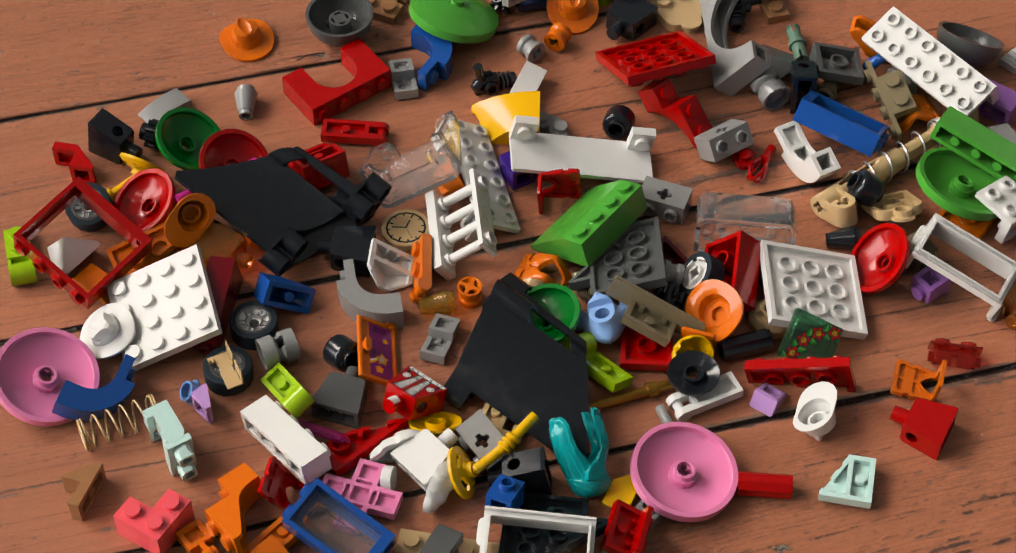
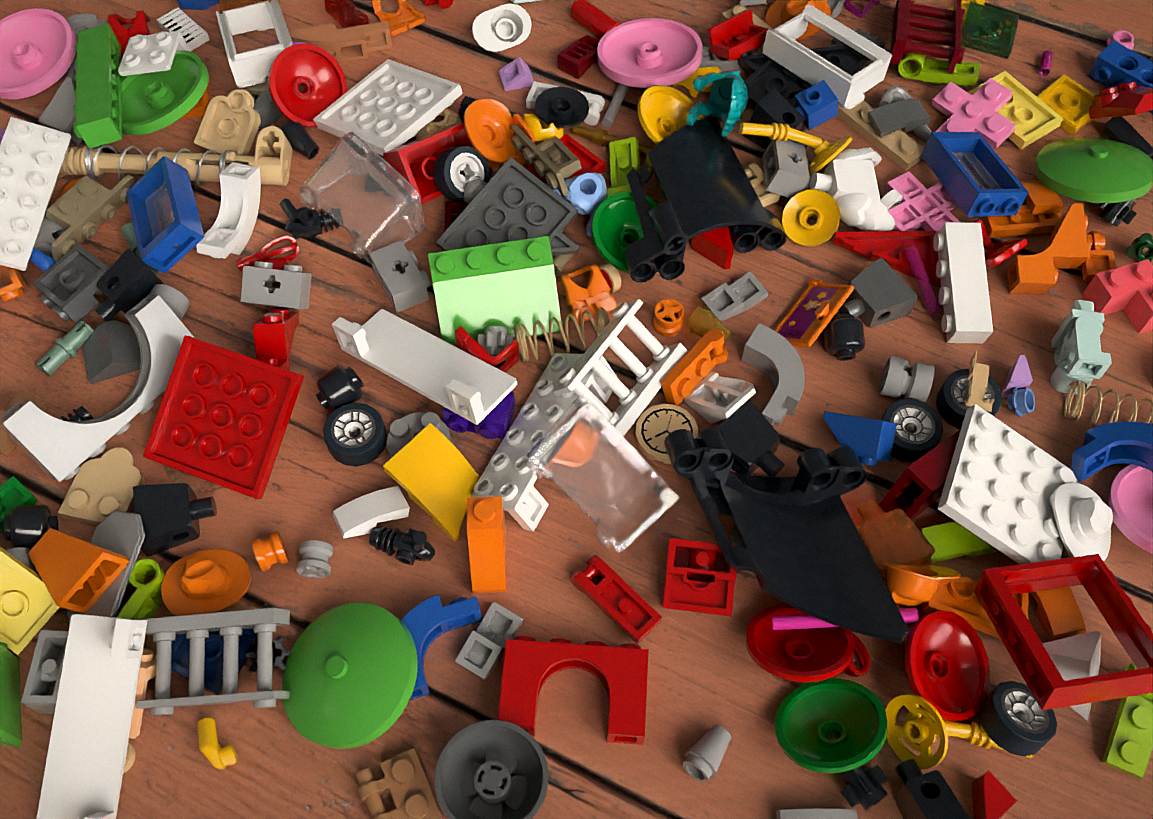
camera: 140 degrees left, 10 degrees up
(287, 390) = (928, 321): lime plate -> none
(413, 395) = (816, 245): red torso -> none
(446, 94) = (487, 544): none -> orange slope
(549, 208) = (602, 322): none -> tan piece
(557, 200) = (495, 340): none -> light grey gear
(582, 110) = (348, 422): none -> wheel
(620, 407) = (663, 111): none -> yellow dish
(741, 432) = (566, 58): none -> dark red slope
(766, 187) = (305, 221): none -> black piece
(802, 372) = (473, 55): red wing -> none
(809, 337) = (445, 69): clear green tile -> none
(865, 187) = (245, 140): black head -> none
(922, 319) = (346, 43): none -> nougat slope

